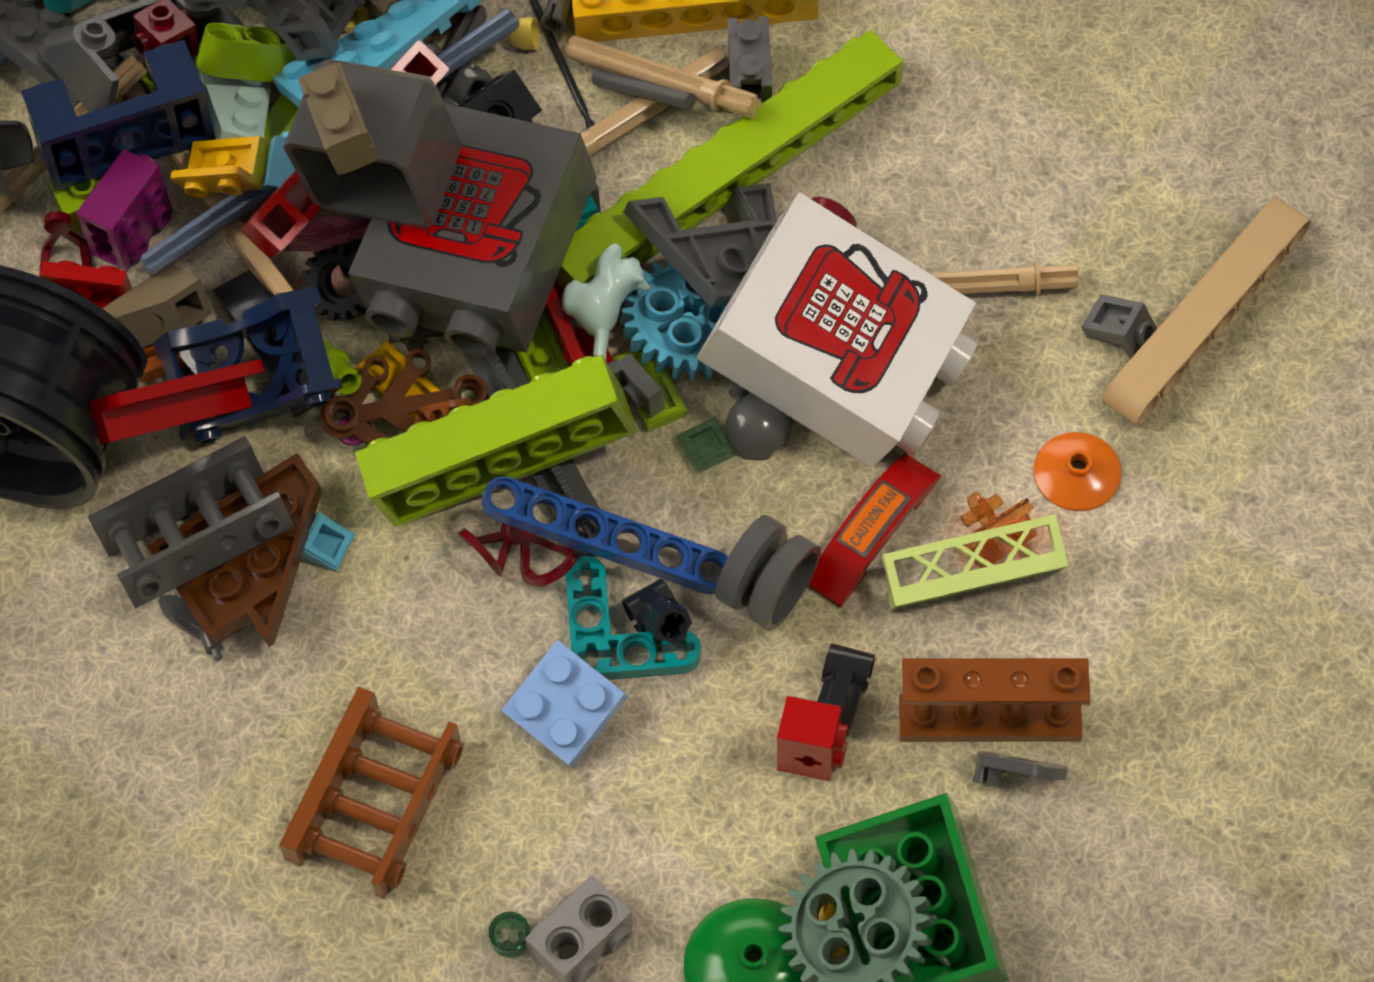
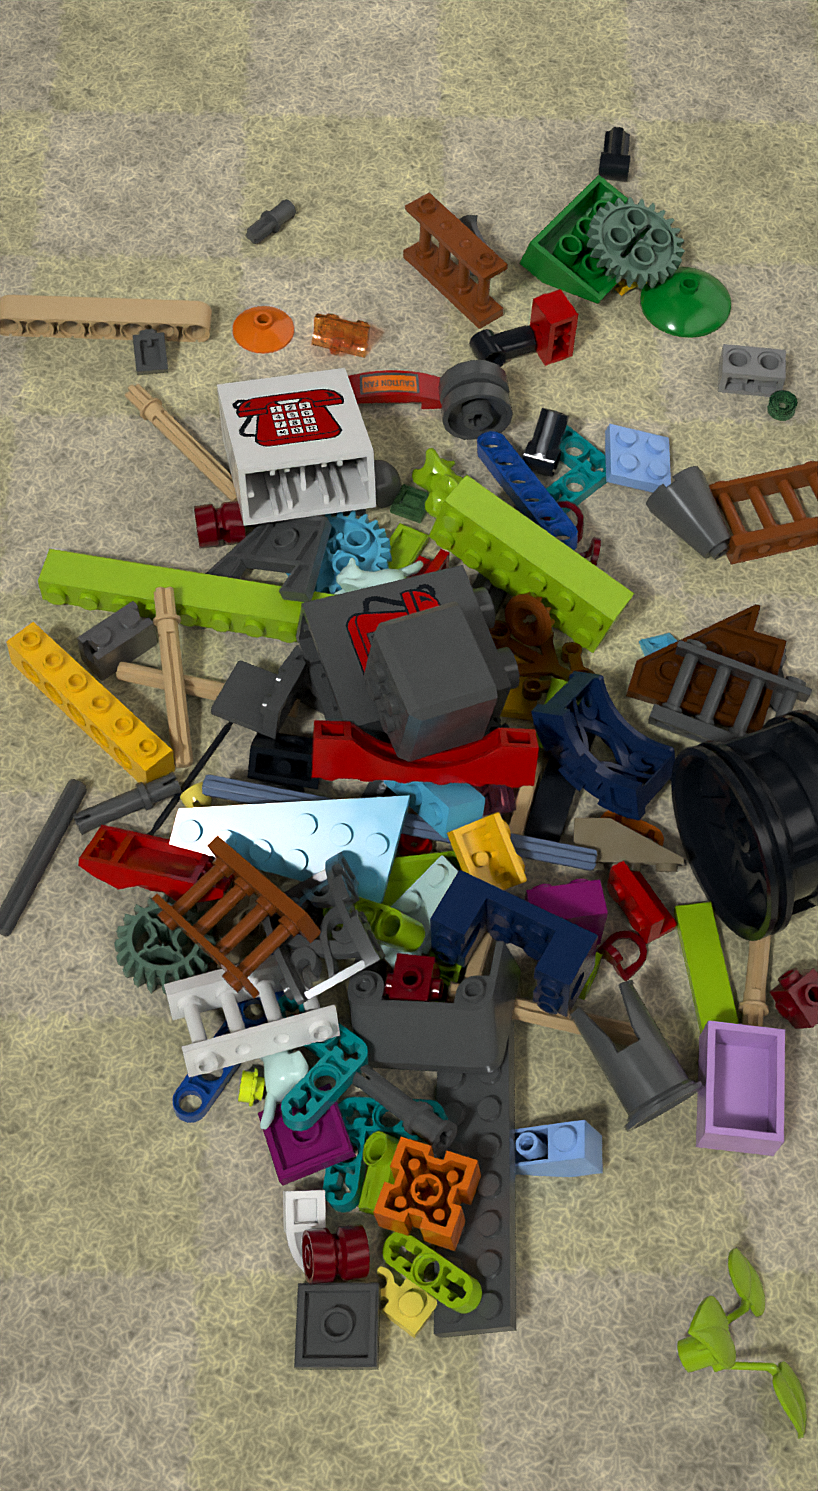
camera: 135 degrees left, 5 degrees down
(173, 402) = (673, 739): red fence -> none
(338, 118) = (464, 640): dark tan brick -> none
(442, 686) = (692, 512): none -> dark grey cone
(570, 105) = (260, 697): none -> dark grey bracket
(638, 385) = (415, 543): dark grey bracket -> none
(644, 89) = (191, 681): dark grey bar -> none
(679, 474) = (437, 479): none -> lime animal
(979, 578) = (381, 322): yellowish green fence -> none
(1240, 580) = (270, 221): none -> dark grey axle

